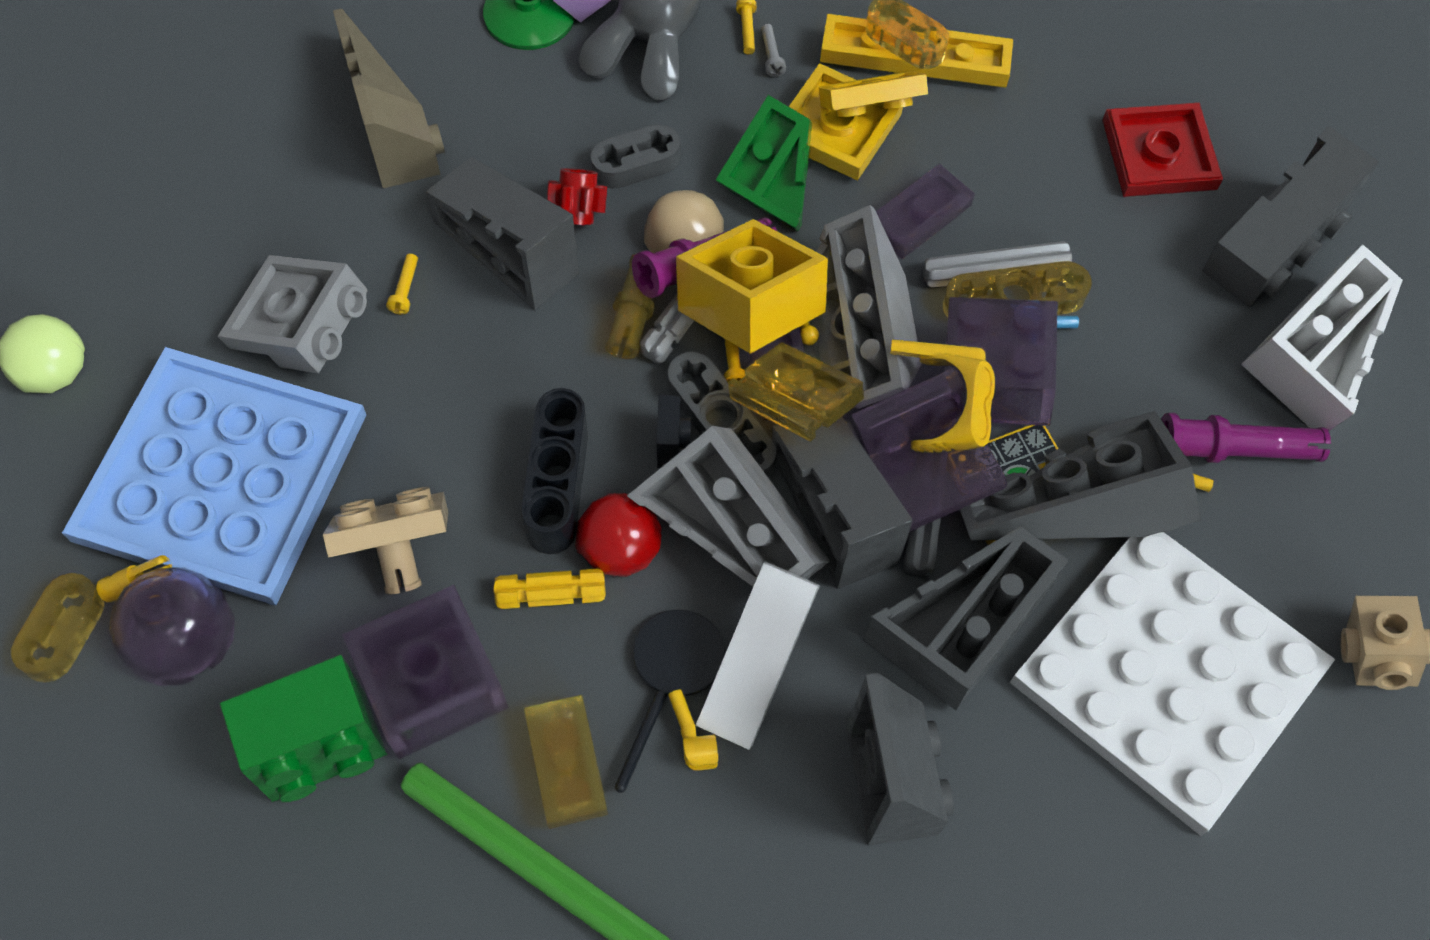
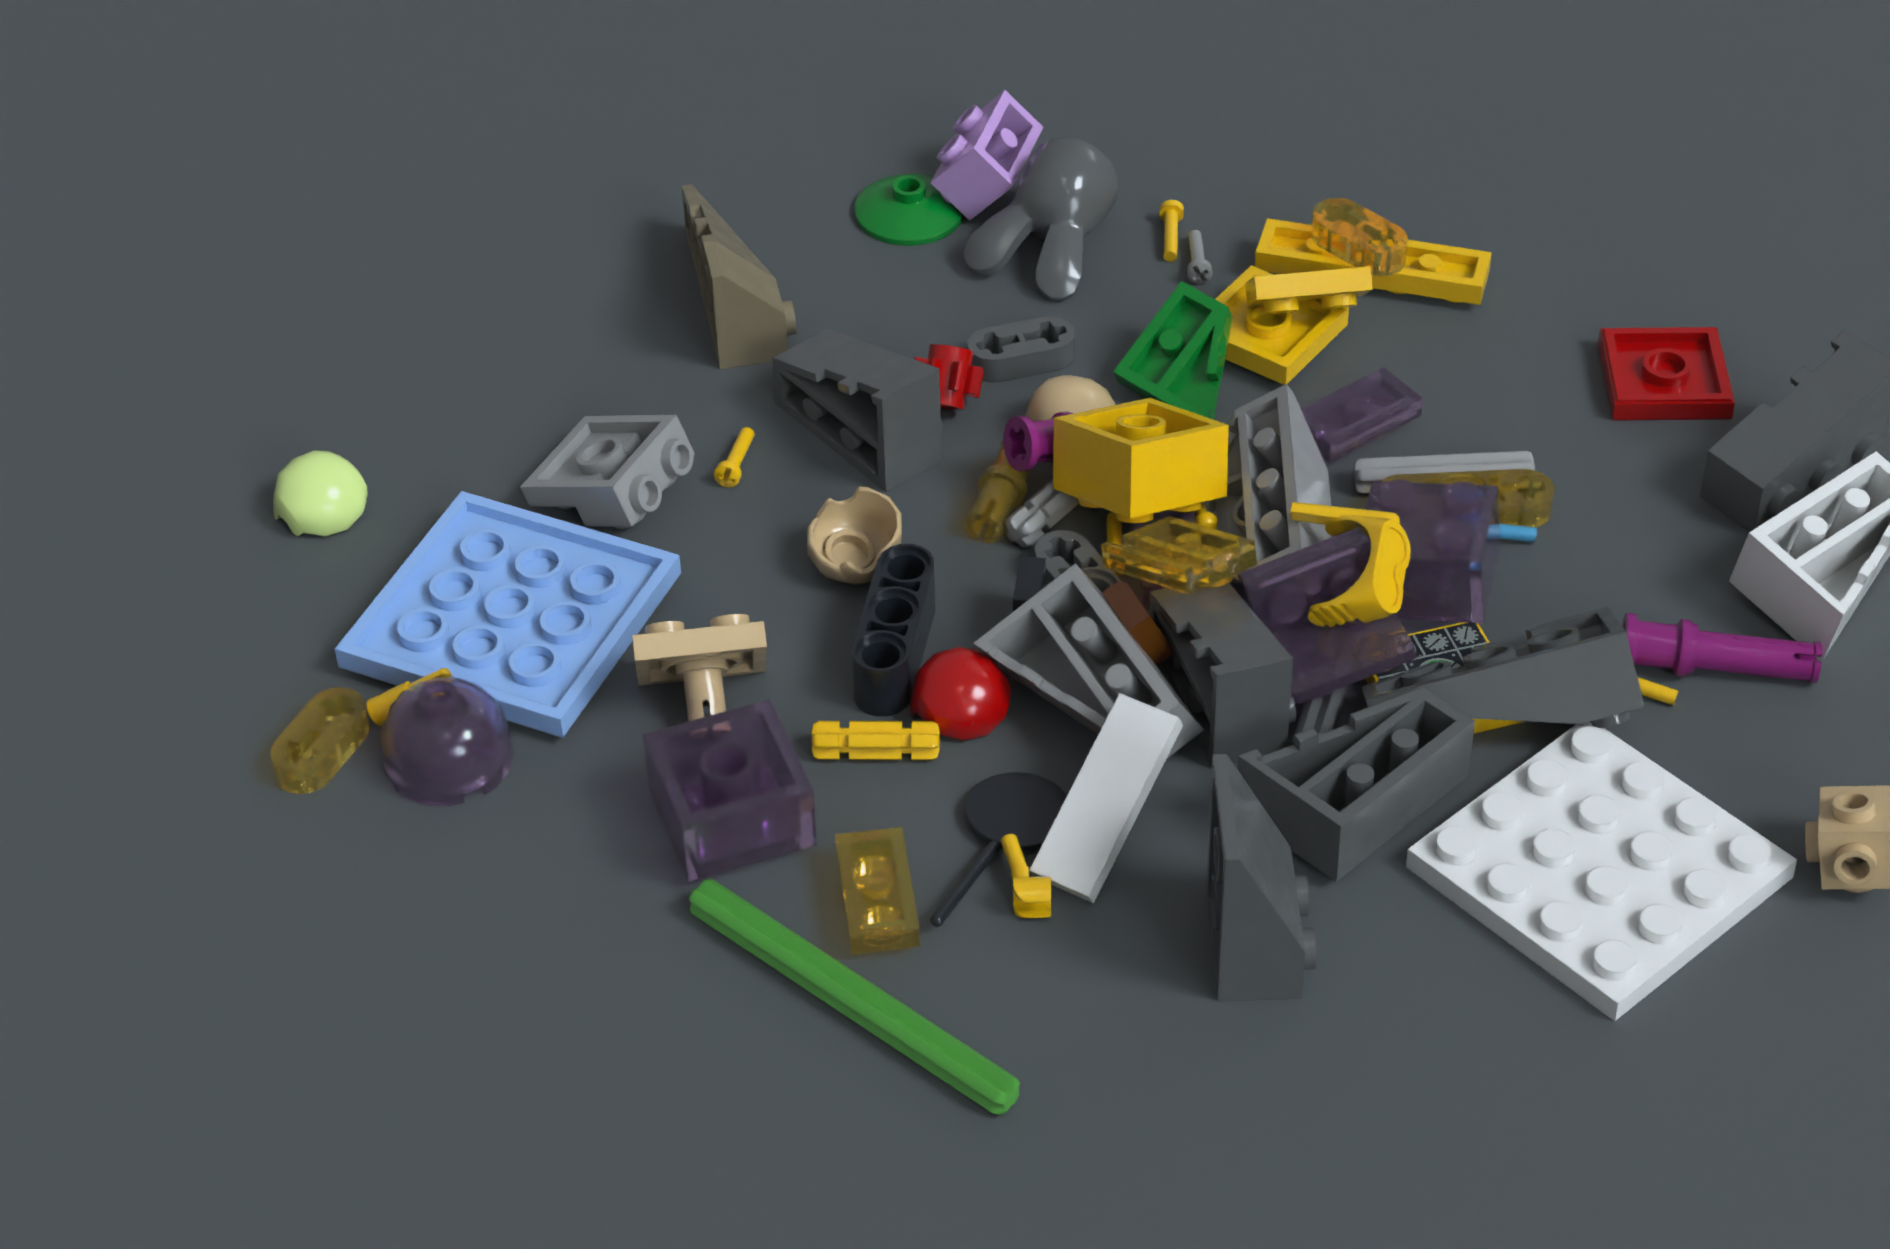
camera: 10 degrees right, 20 degrees down
(303, 730) = (593, 823): green brick -> none
(512, 374) = (853, 534): none -> tan hair
(766, 463) = (1138, 621): none -> reddish brown tile

